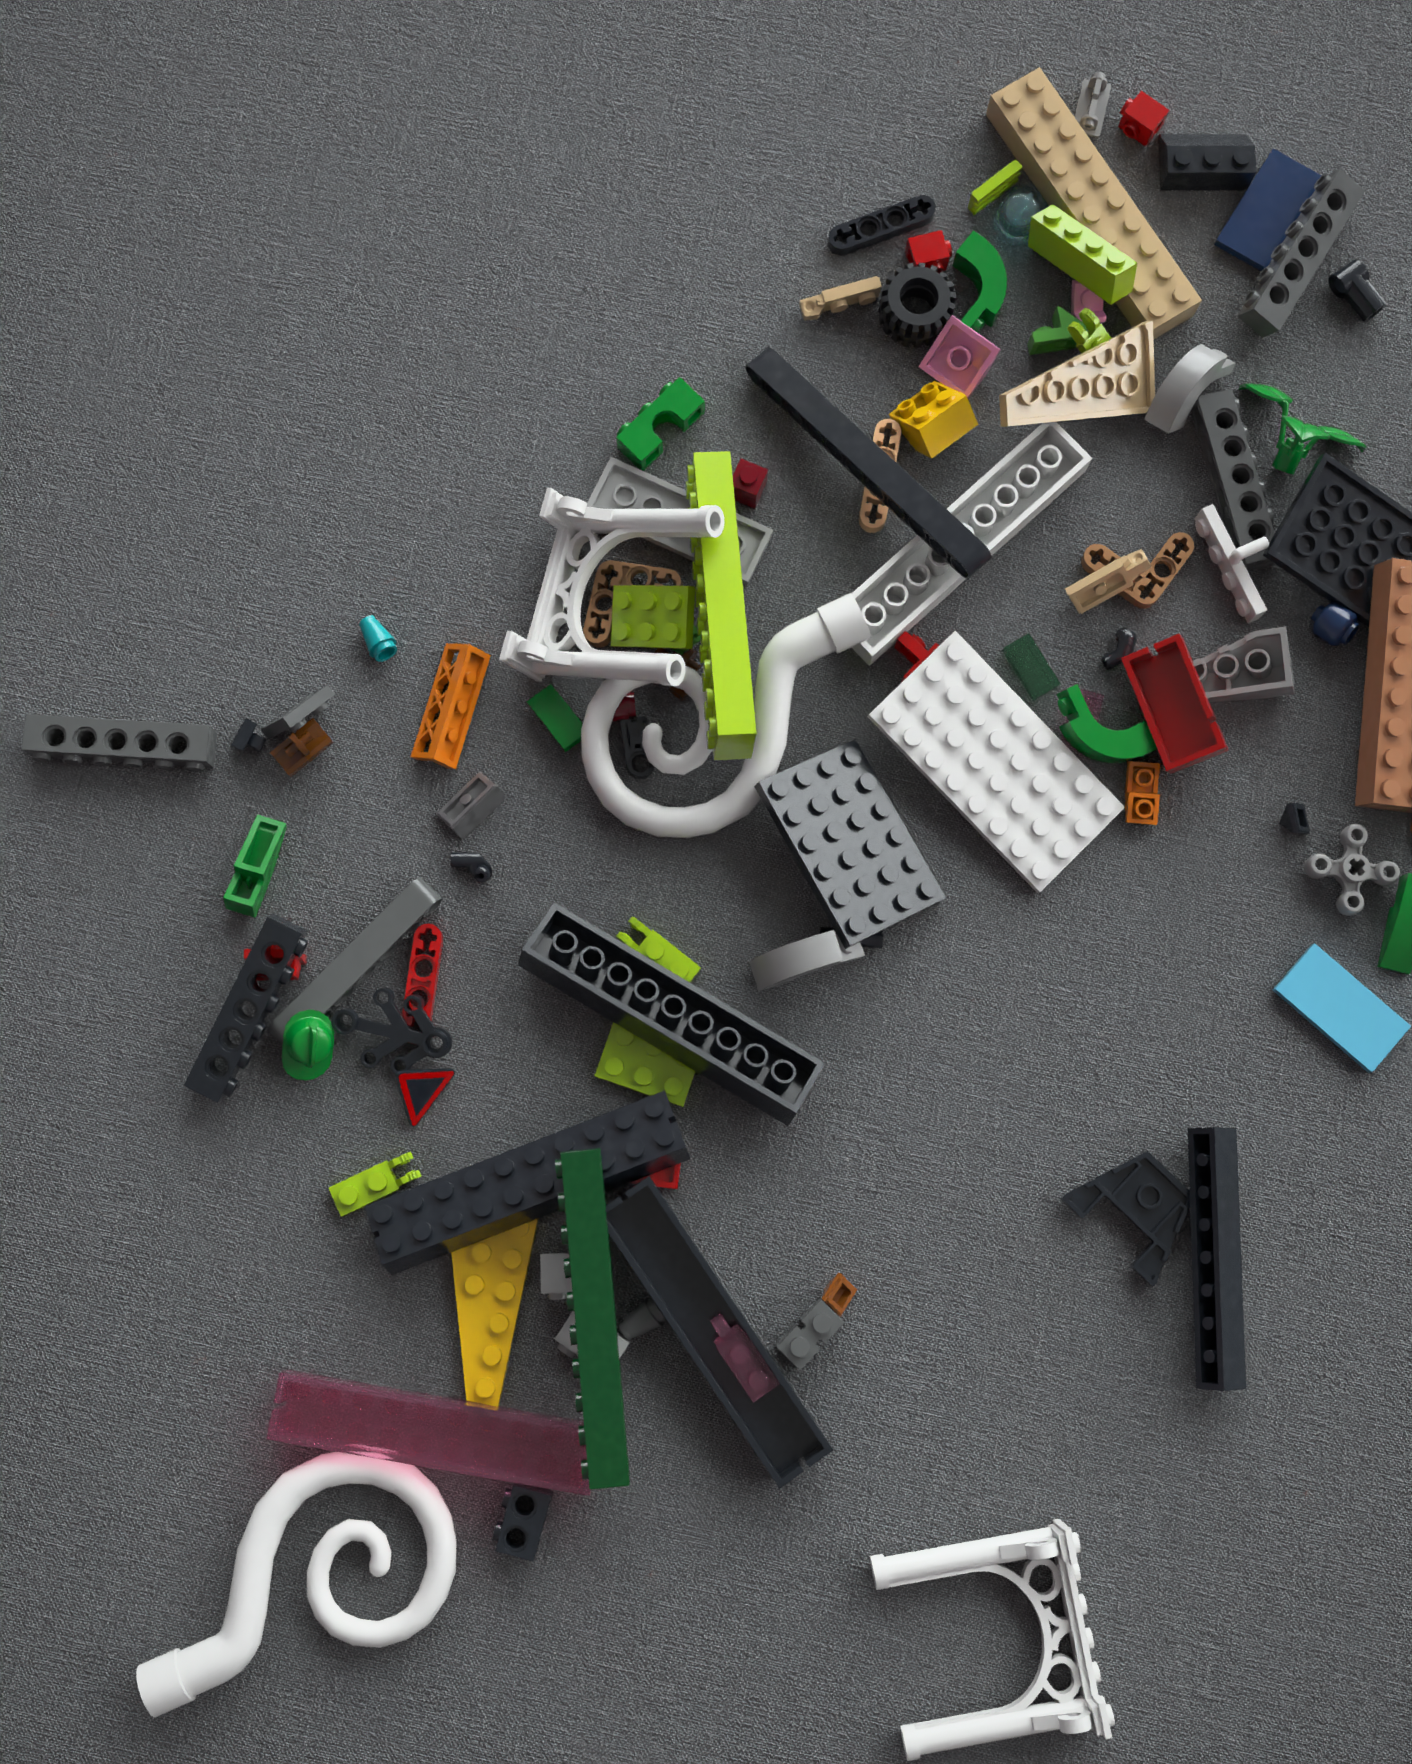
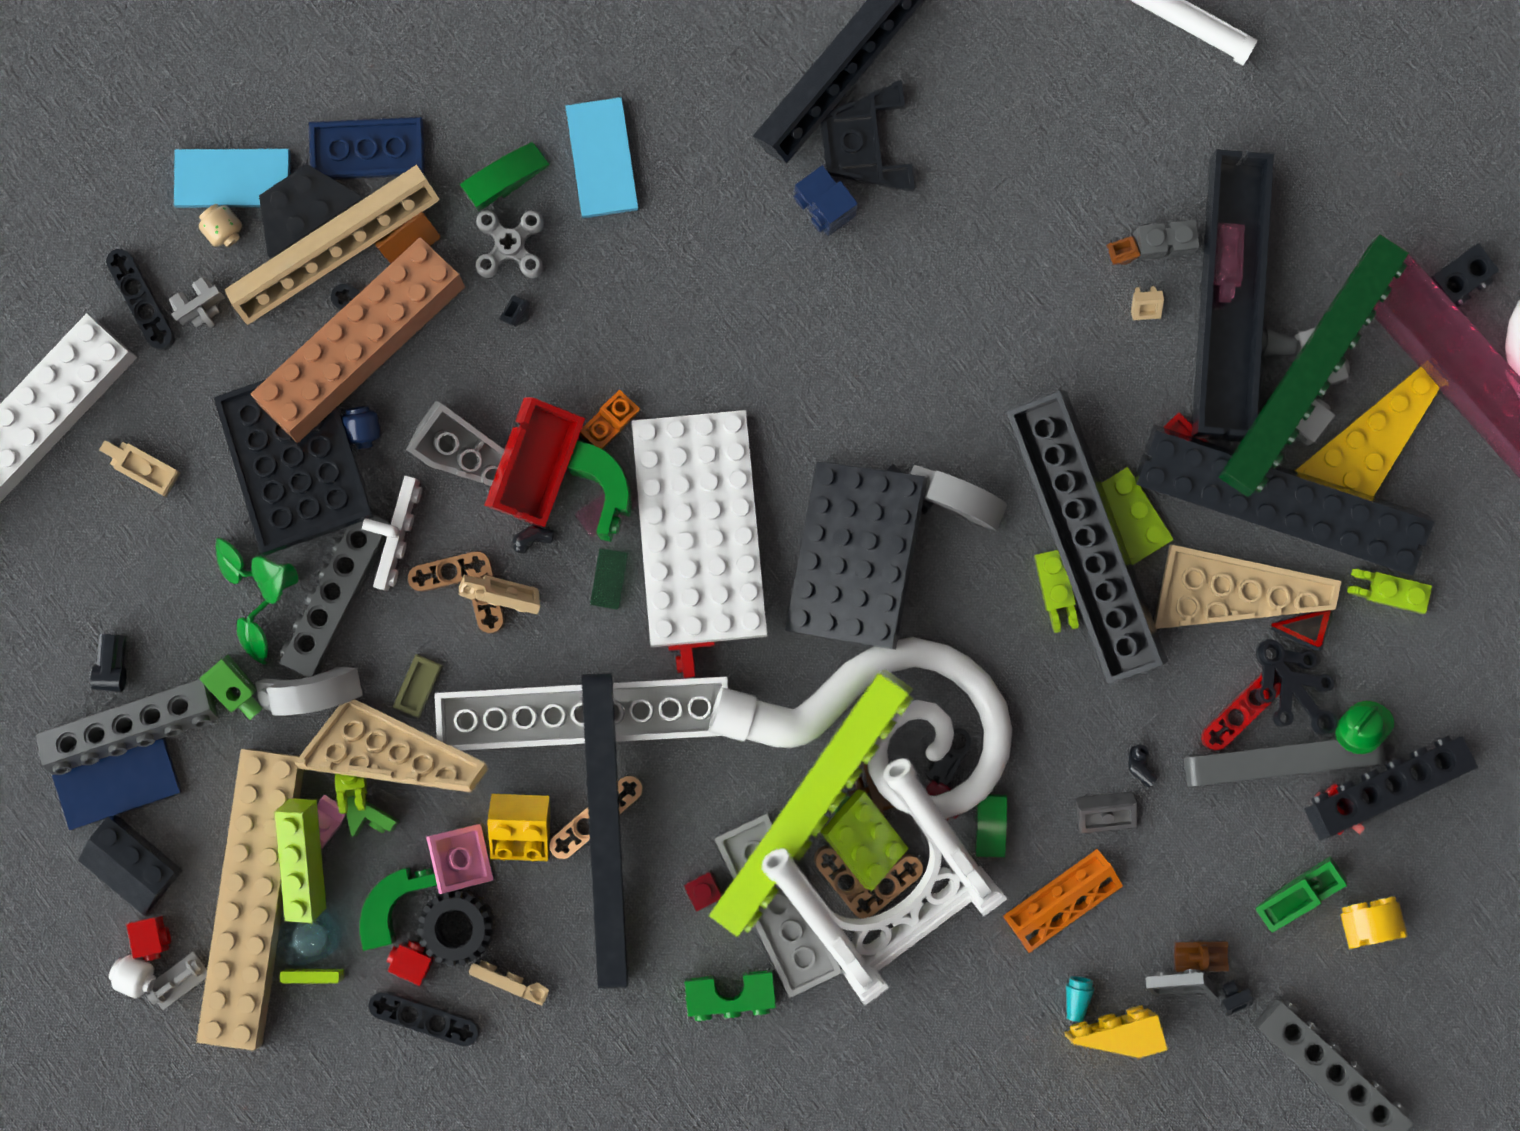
camera: 140 degrees left, 5 degrees up
(176, 885) = (1373, 924): none -> yellow brick
(318, 631) = (1130, 1034): none -> yellow slope
(516, 1069) = (1220, 588): none -> tan wing
(780, 1262) = (1147, 304): none -> tan tile
(1107, 464) = (417, 686): none -> olive tile
(1127, 1122) = (826, 200): none -> dark blue brick
(1128, 80) = (132, 976): none -> white head
(1252, 343) = (225, 676): none -> bright green torso

